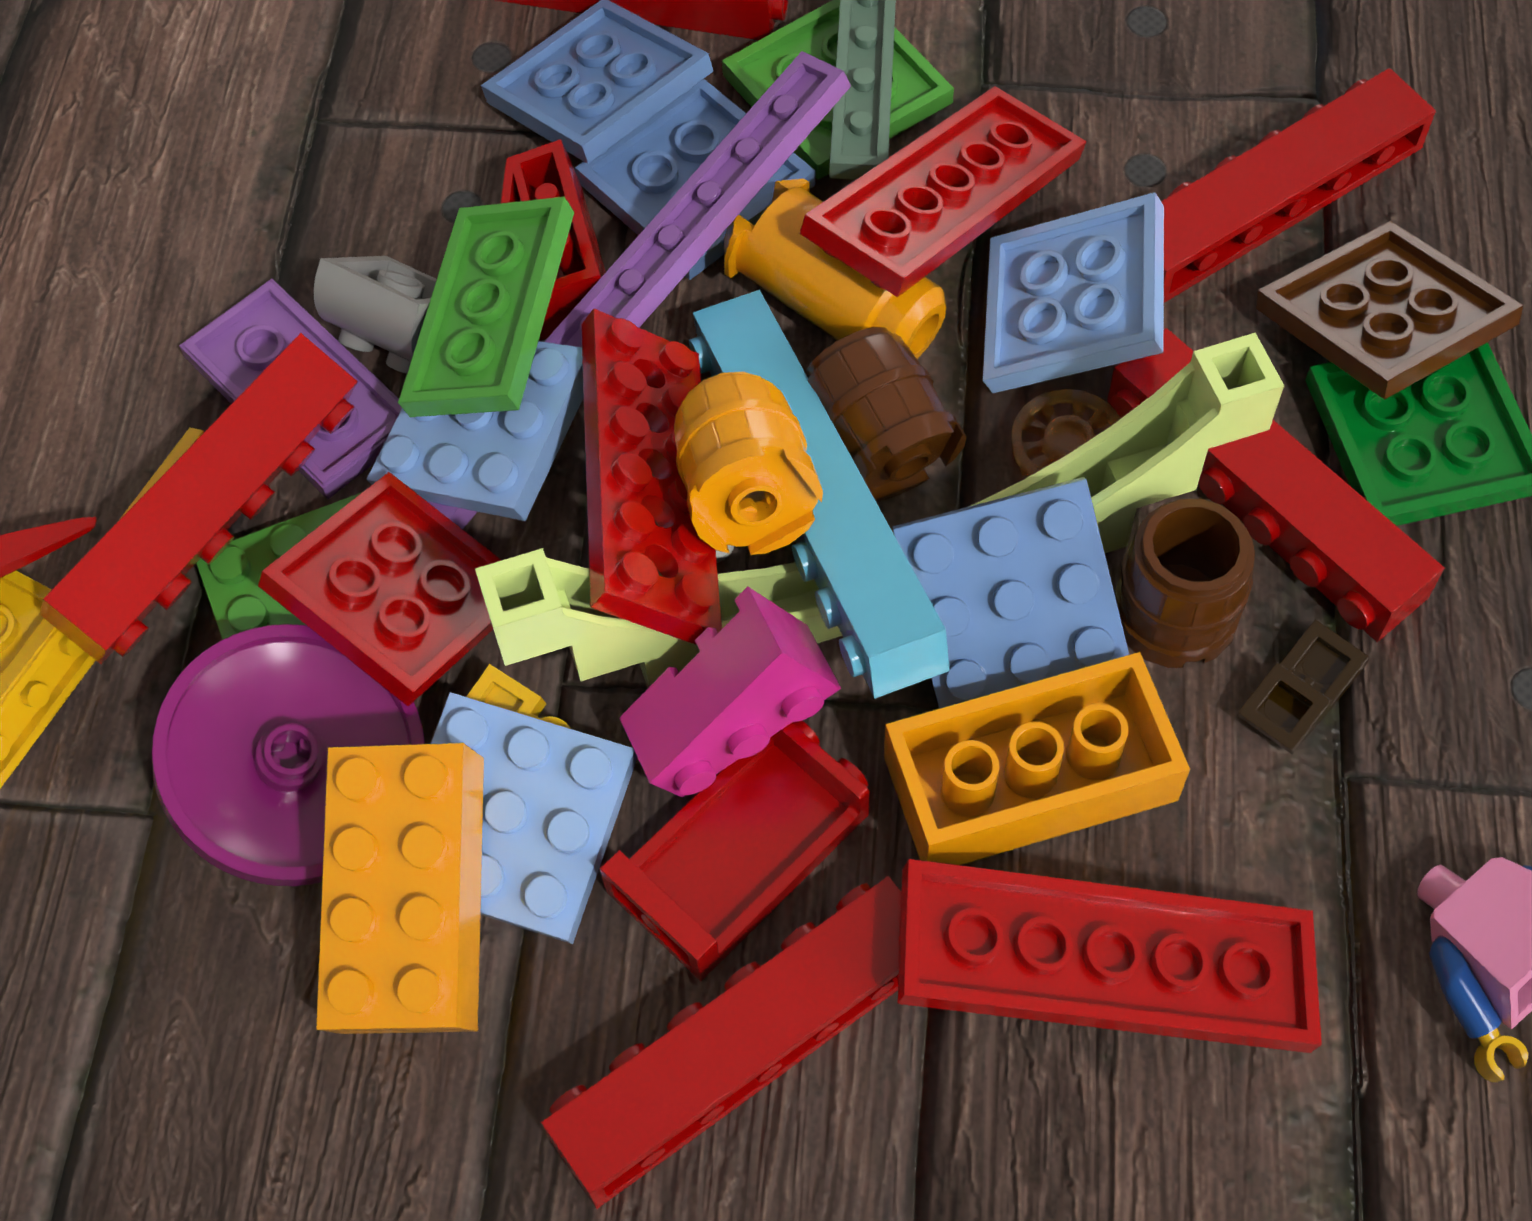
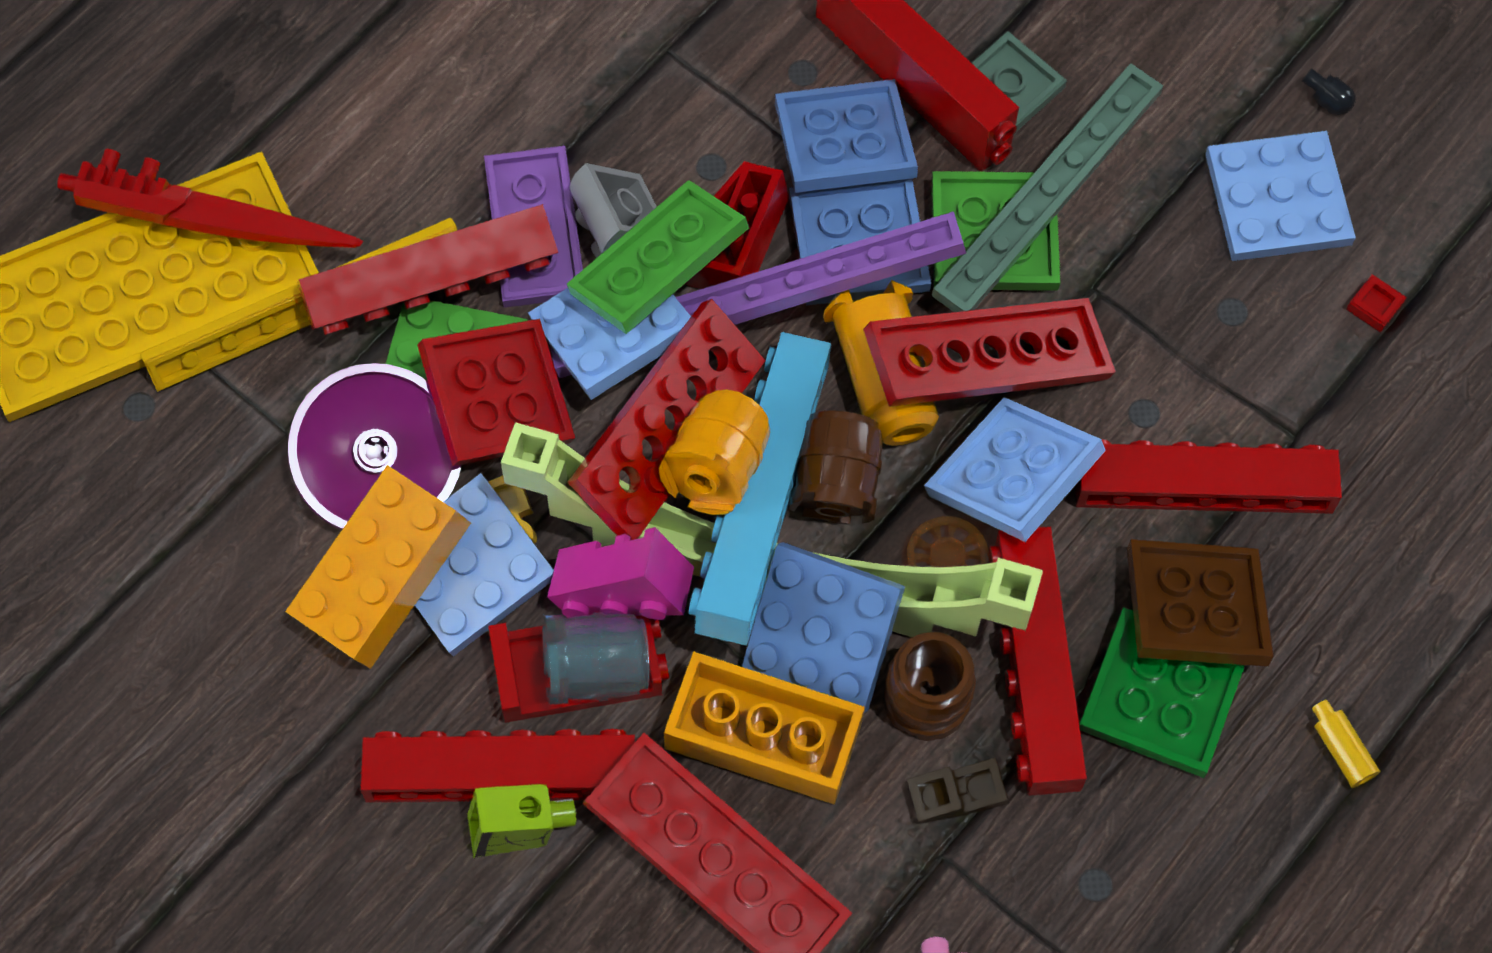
camera: 30 degrees right, 5 degrees up
(765, 815) = (595, 656): none -> clear light blue piece
(816, 1089) = (515, 818): none -> lime torso

